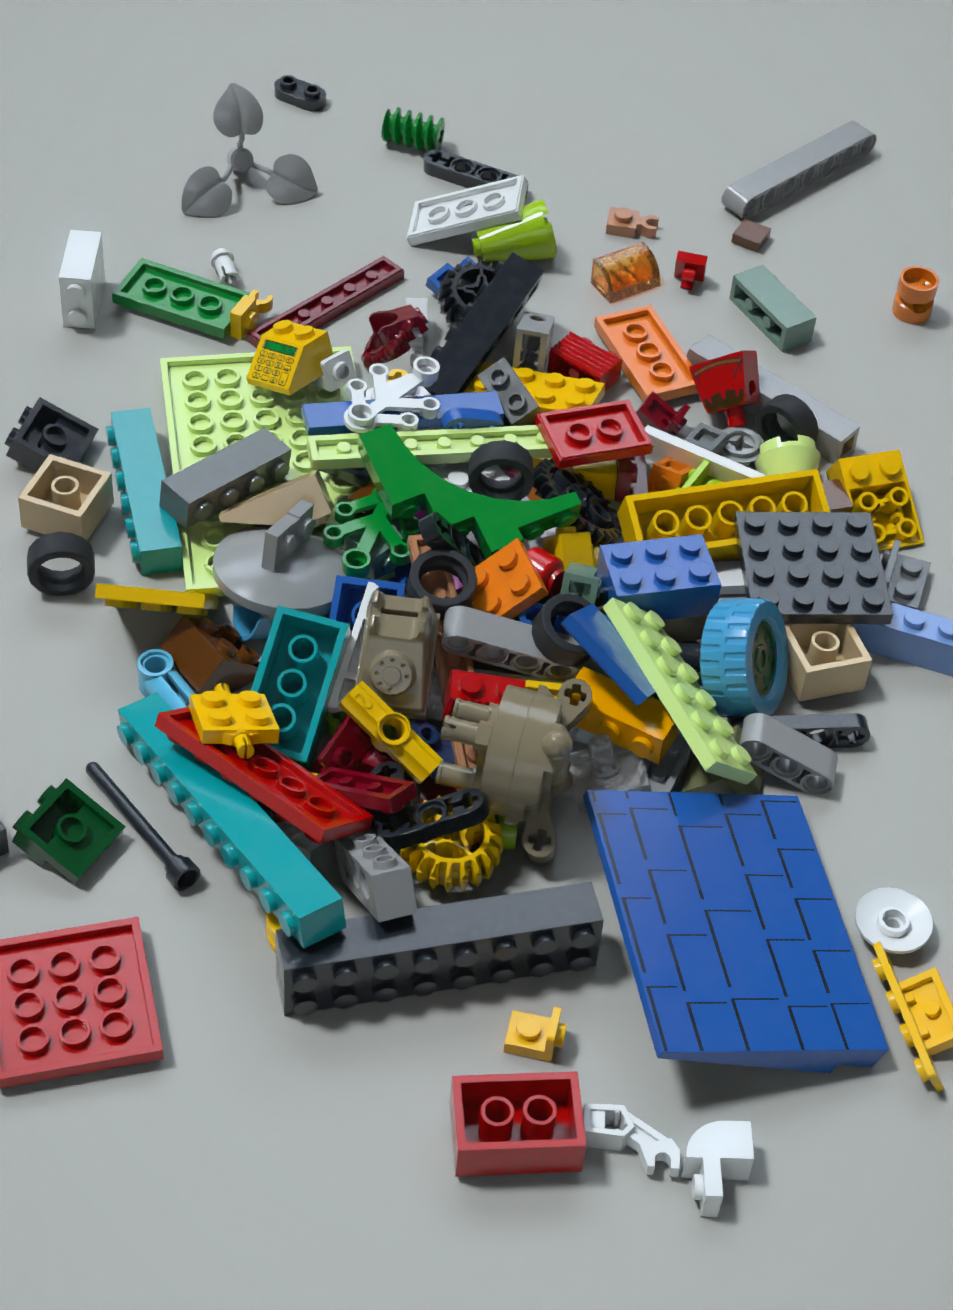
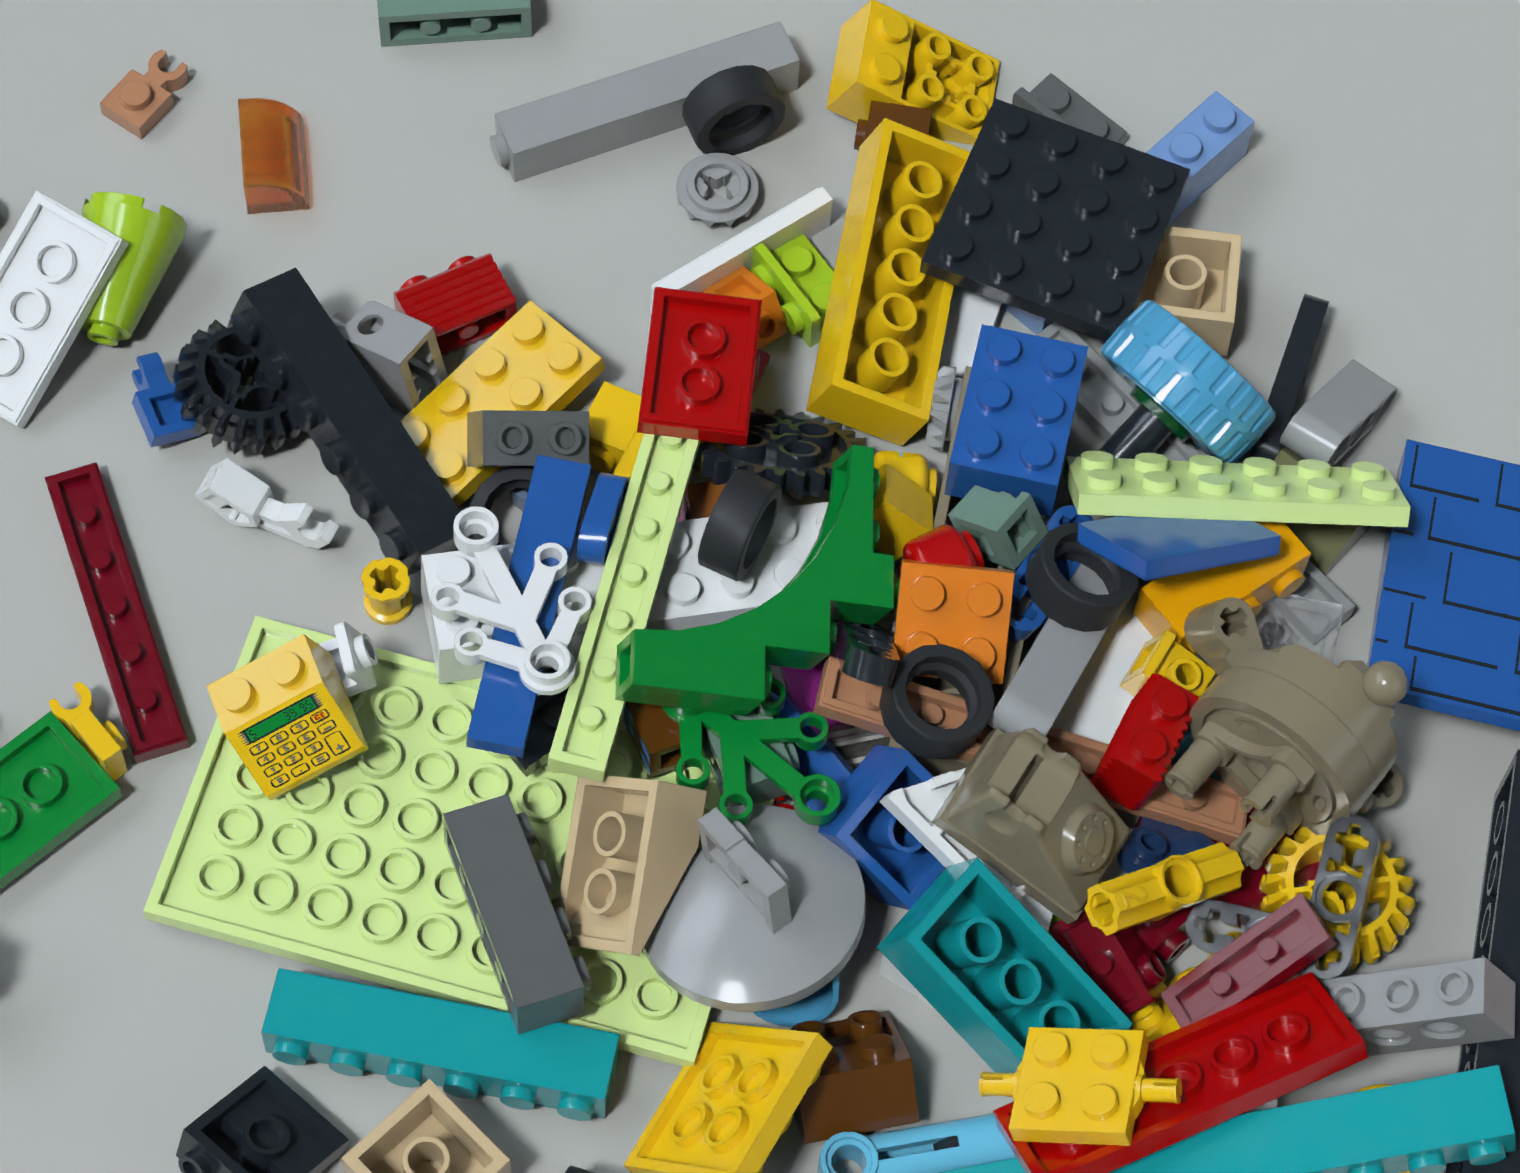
camera: 65 degrees left, 15 degrees up
(392, 334) = (255, 512): dark red piece -> none
(648, 352) = (468, 211): orange plate -> none
(660, 415) = (618, 259): dark red bracket -> none
(690, 268) = (312, 67): red tile -> none
(708, 438) = (705, 224): tile -> none
(728, 385) = (617, 142): red torso -> none
(787, 456) = (812, 147): yellowish green cone -> none

